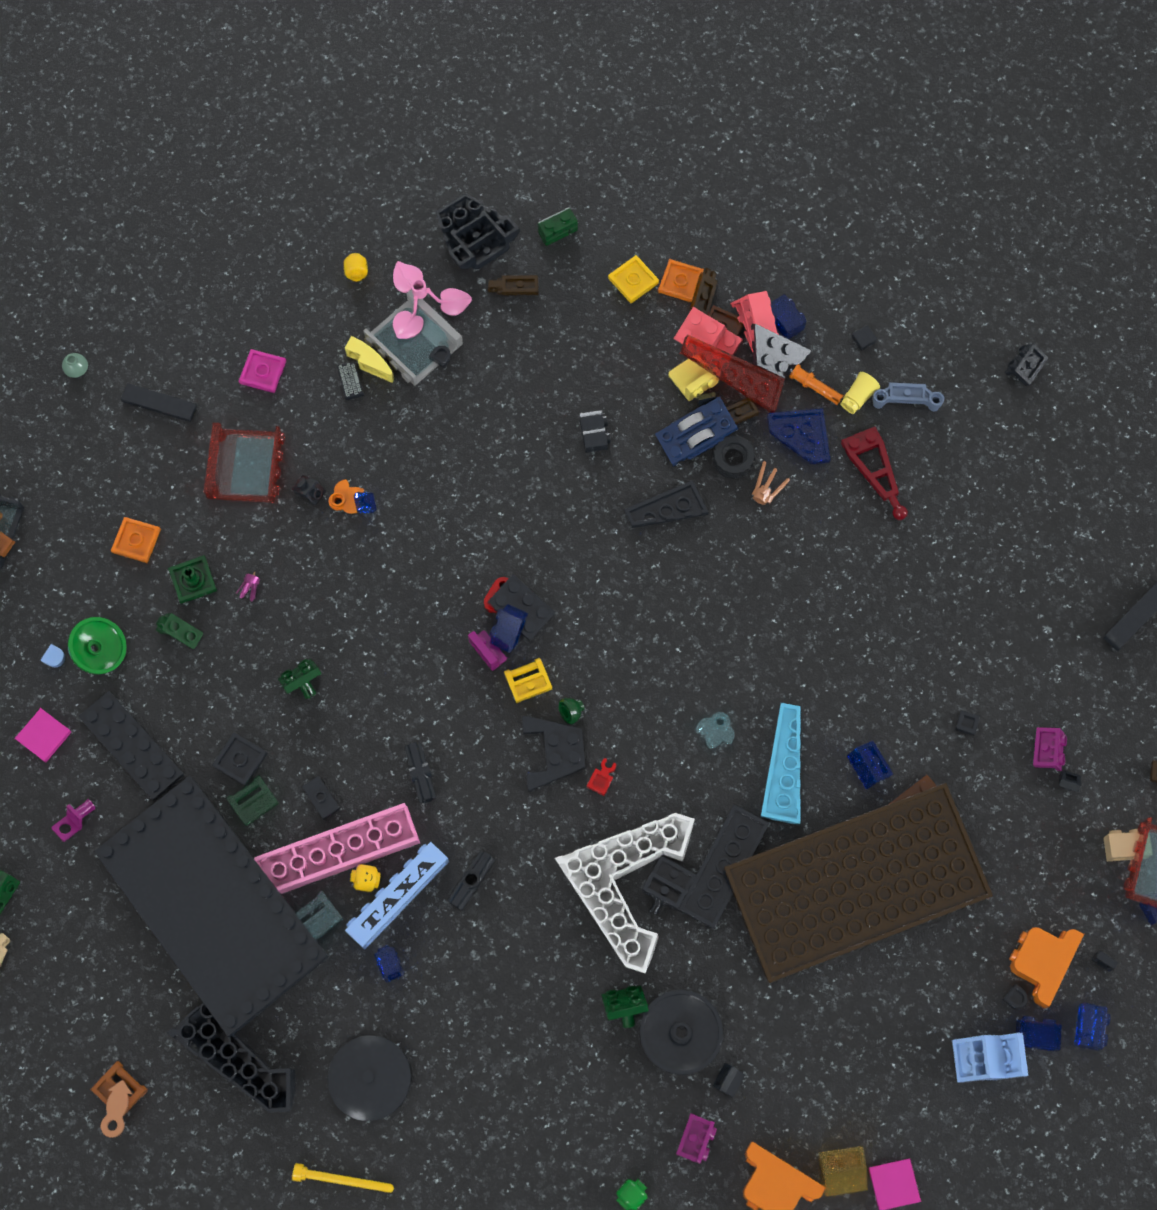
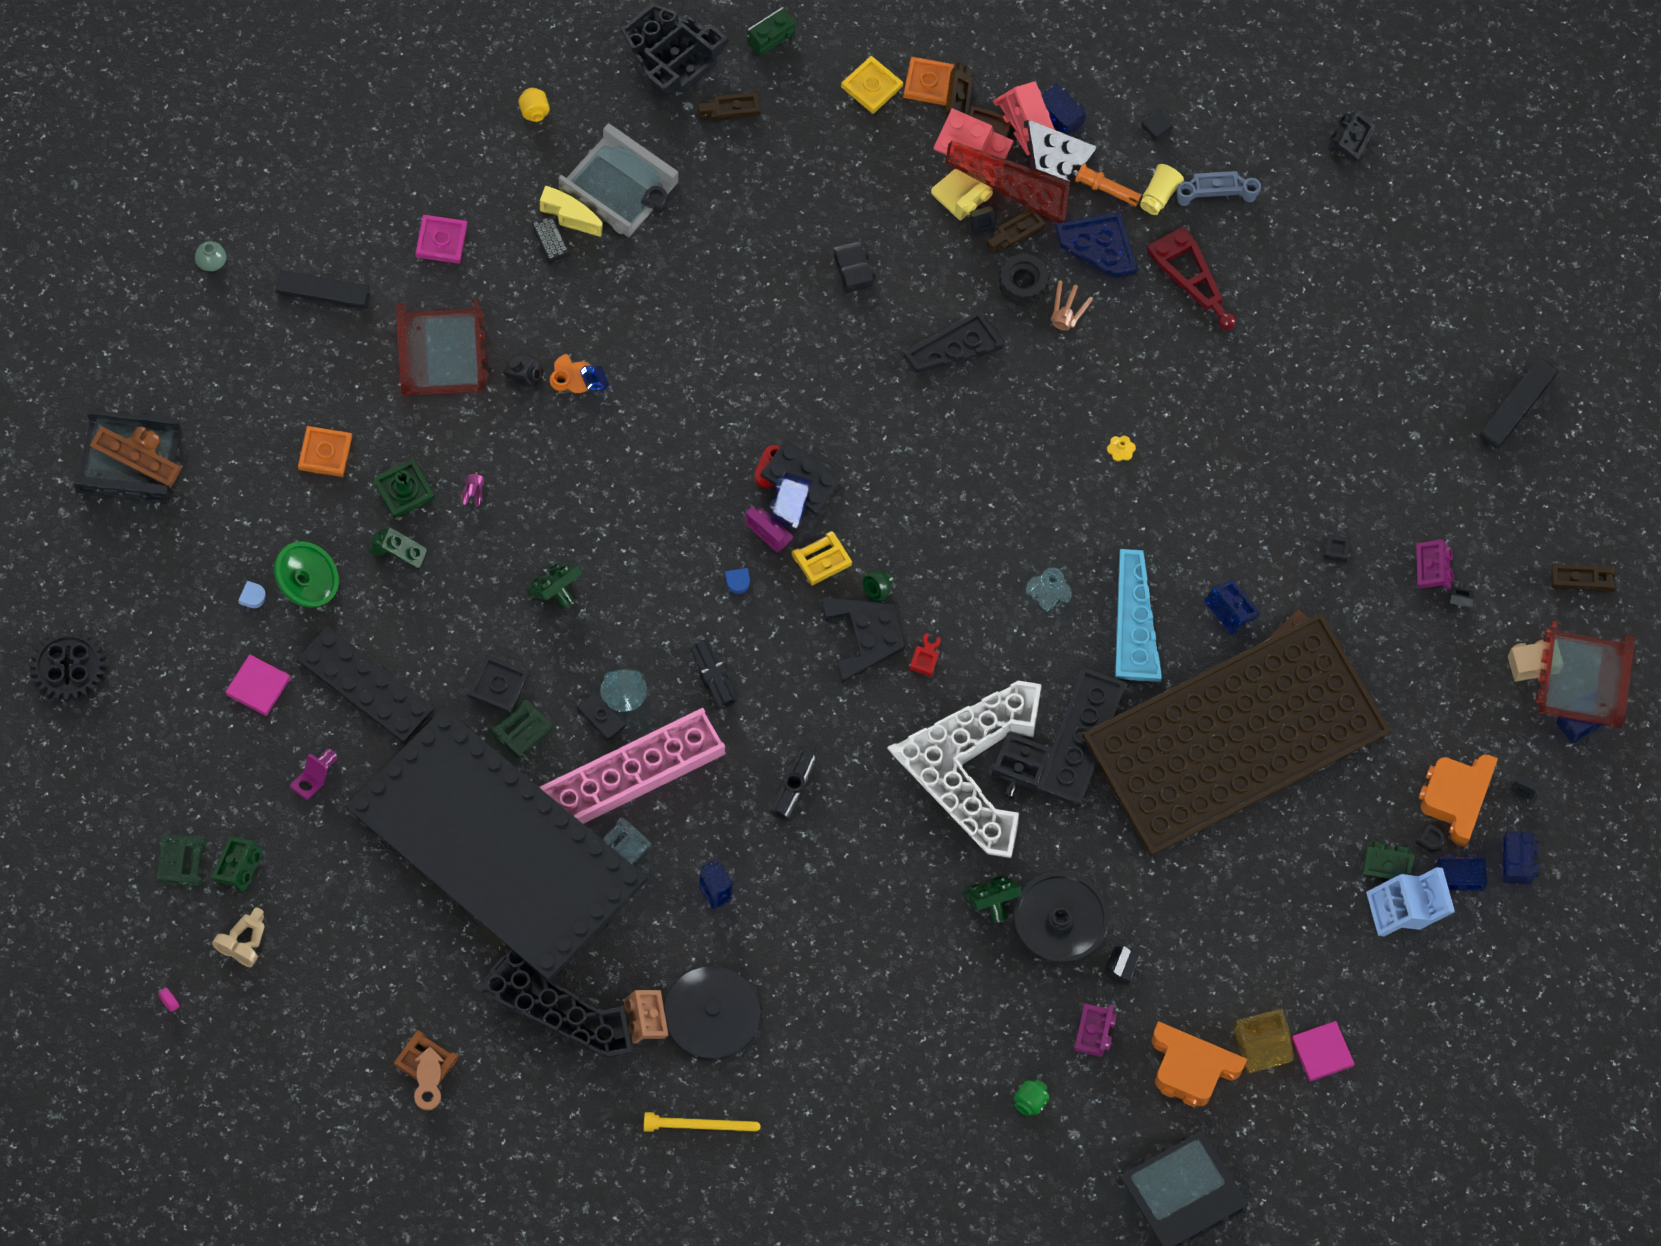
camera: 15 degrees left, 5 degrees down
(312, 1073) = (646, 1015): none -> nougat bracket
(343, 777) = (623, 690): none -> clear light blue dish
(365, 878) = (670, 797): yellow head -> none
(396, 895) = (710, 812): light blue brick -> none
(410, 277) = (599, 111): bright pink plant -> none
(455, 691) = (738, 580): none -> blue tile
(696, 431) = (975, 254): dark blue piece -> none
(795, 616) = (1121, 448): none -> yellow plant
(975, 1015) = (1387, 861): none -> dark green bracket

